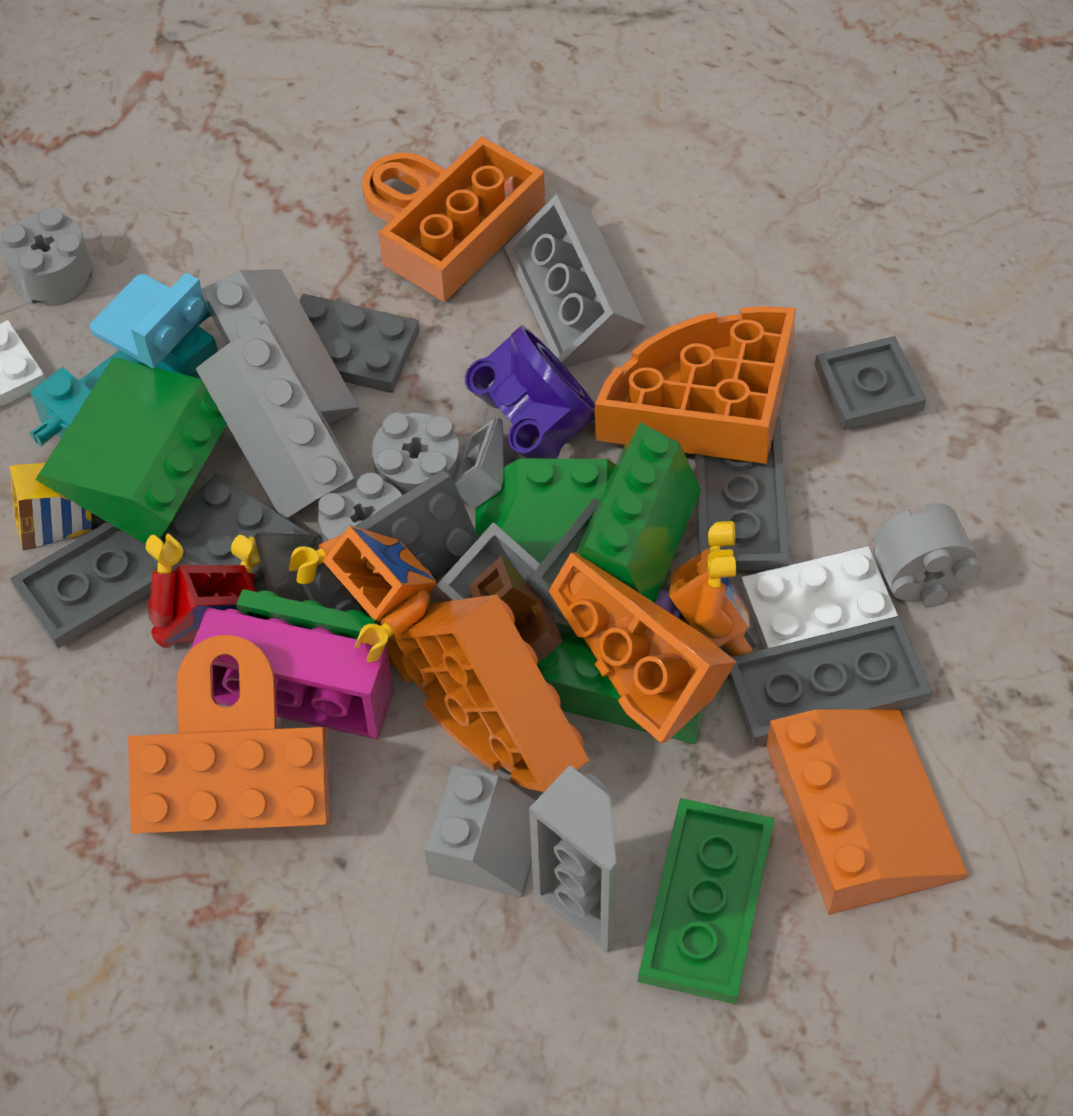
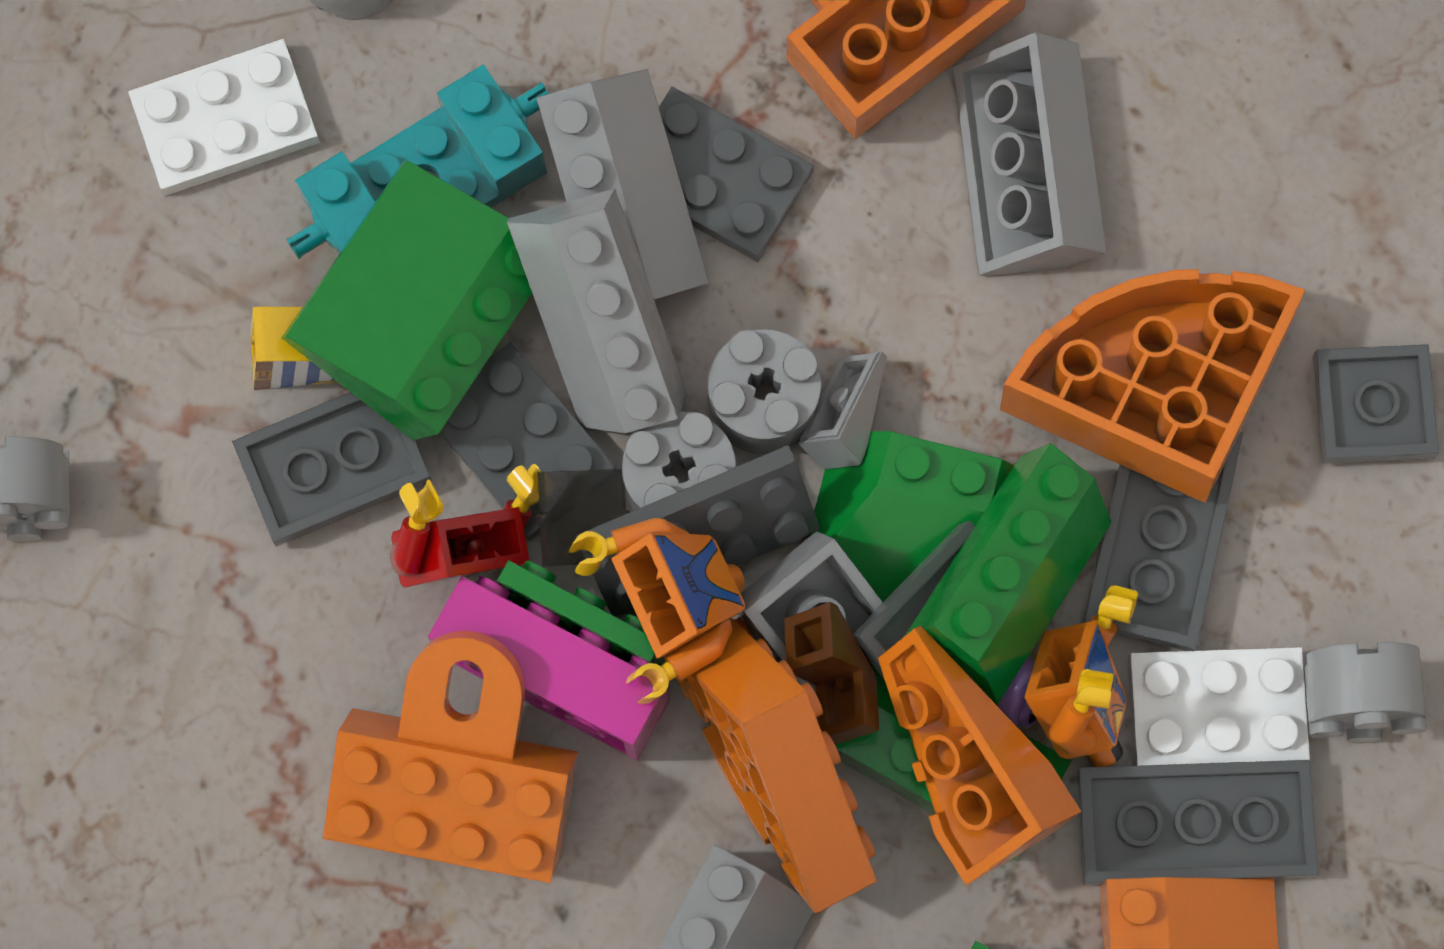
camera: 15 degrees right, 20 degrees up
(150, 317) = (461, 115): medium azure bracket -> none
(532, 393) = (937, 330): dark purple piece -> none

